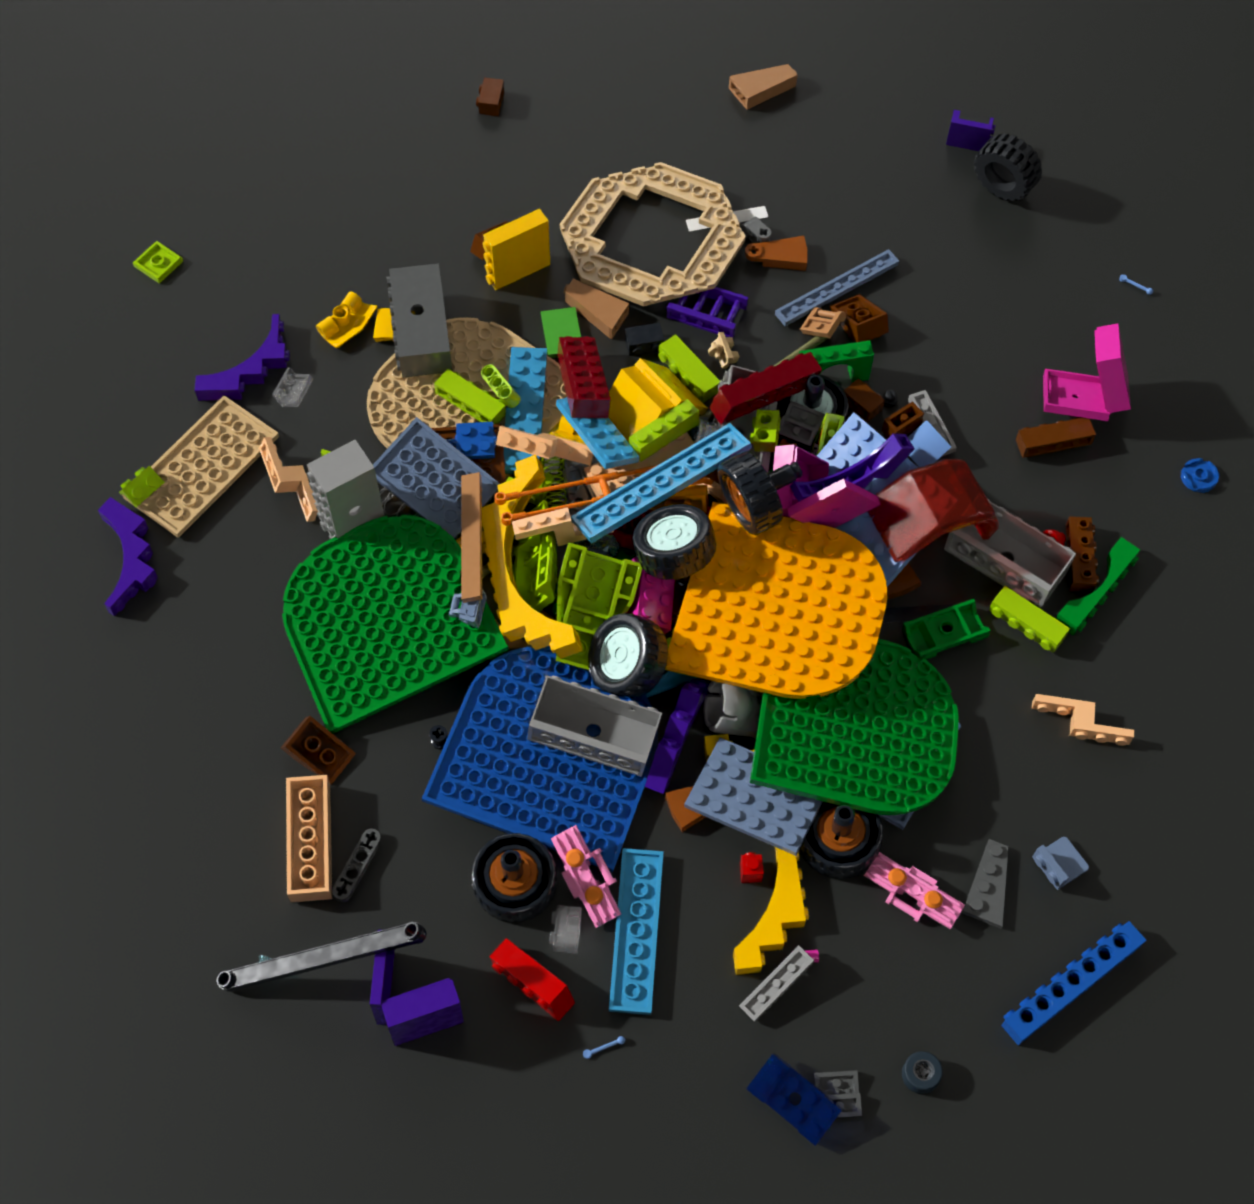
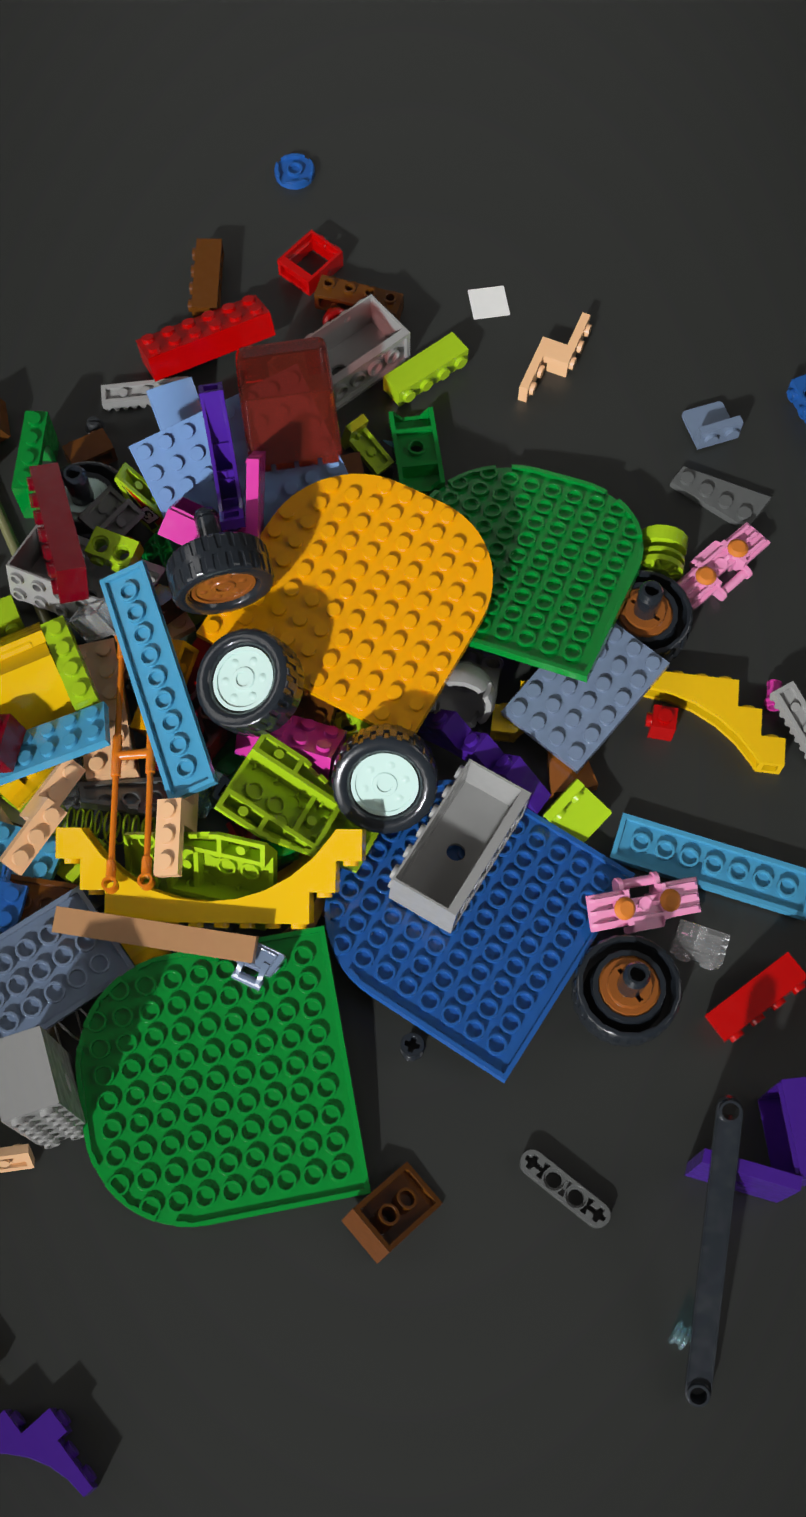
camera: 75 degrees left, 5 degrees up
(308, 838) = (521, 1244): light nougat brick -> none
(653, 813) = (577, 811): none -> lime bracket
(903, 421) = (136, 416): reddish brown brick -> none
(906, 837) = (664, 550): none -> lime wheel
(935, 590) = (371, 452): none -> lime bracket
(996, 449) = (205, 337): none -> red brick
(1096, 394) = (172, 208): dark pink container -> none
(1113, 497) = (299, 277): none -> red window
(1118, 561) = (378, 270): green arch -> none
(1123, 278) = (22, 161): medium blue hinge -> none
(1124, 658) = (488, 302): none -> white sticker

